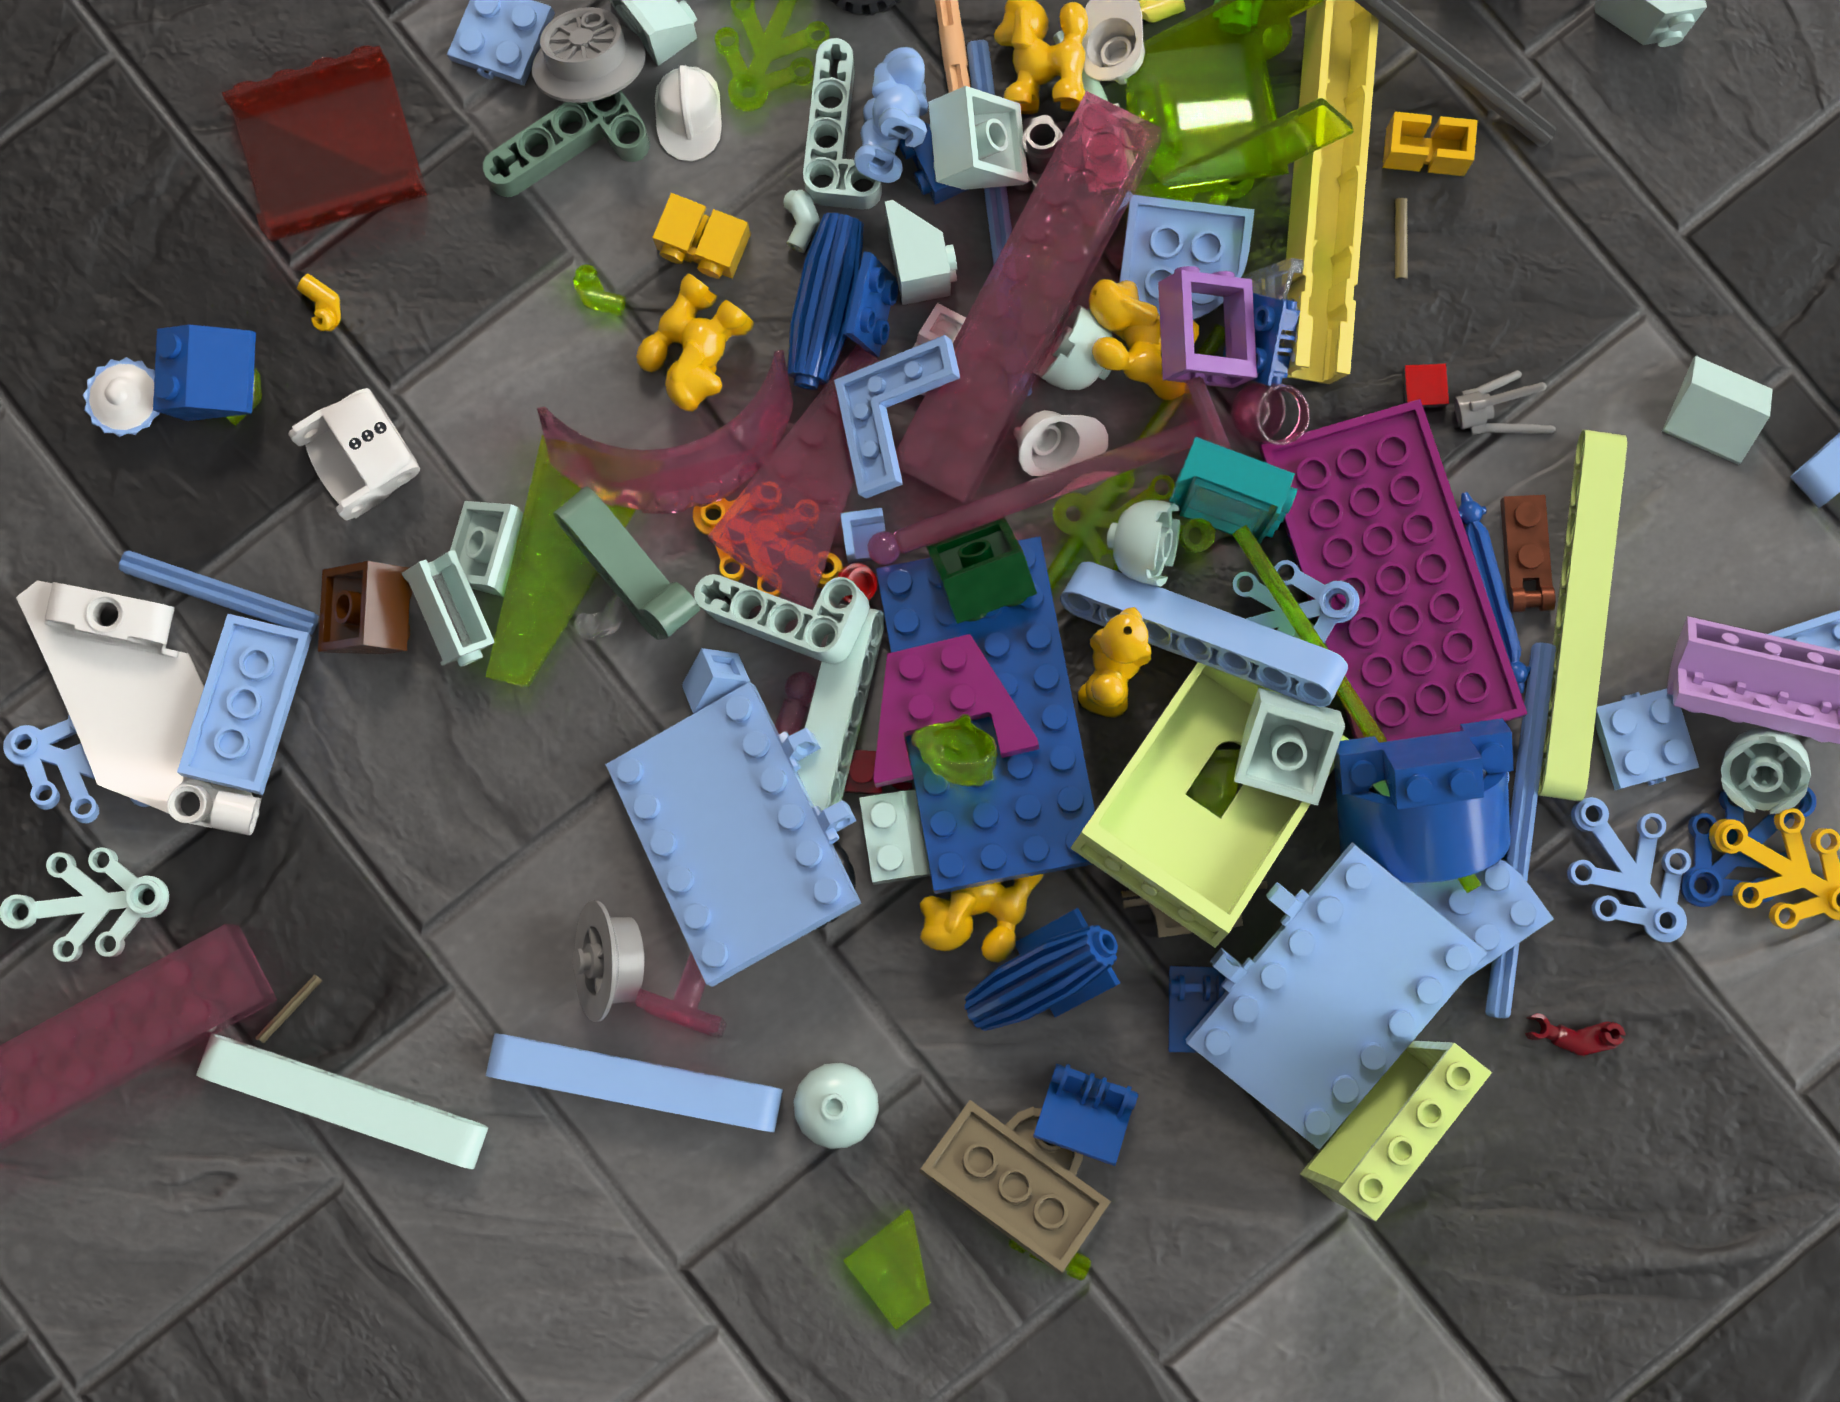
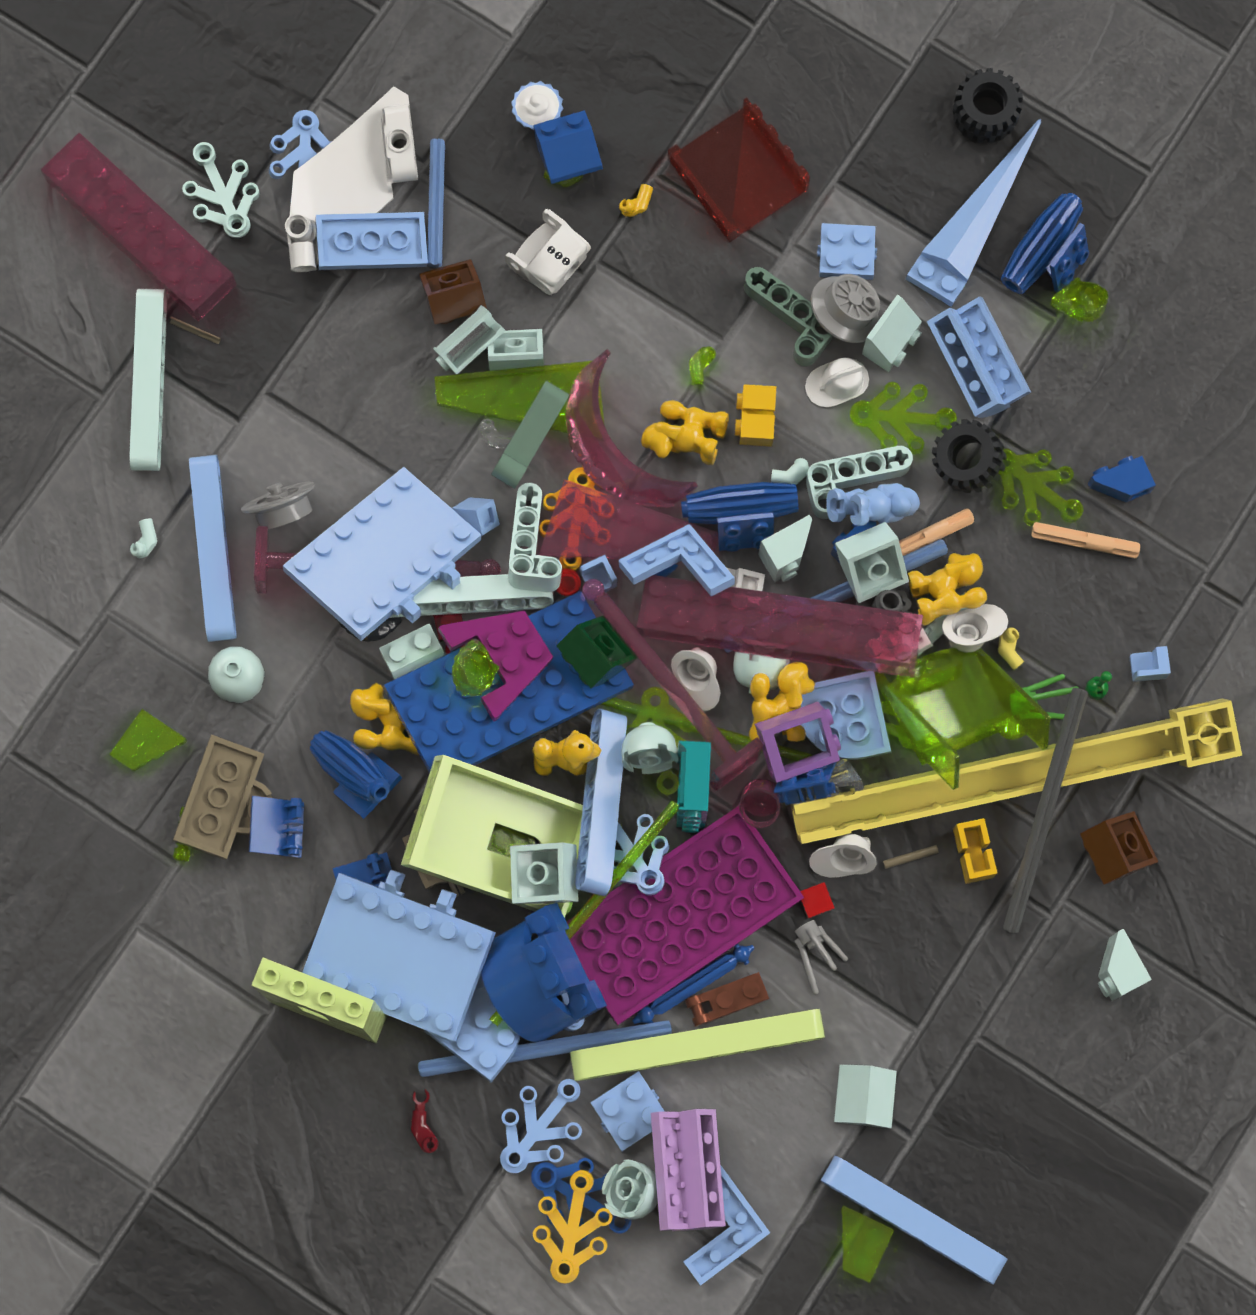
camera: 65 degrees right, 5 degrees down
(590, 1176) = (148, 540): none -> light aqua arm
(1380, 322) = (845, 857): none -> white piece

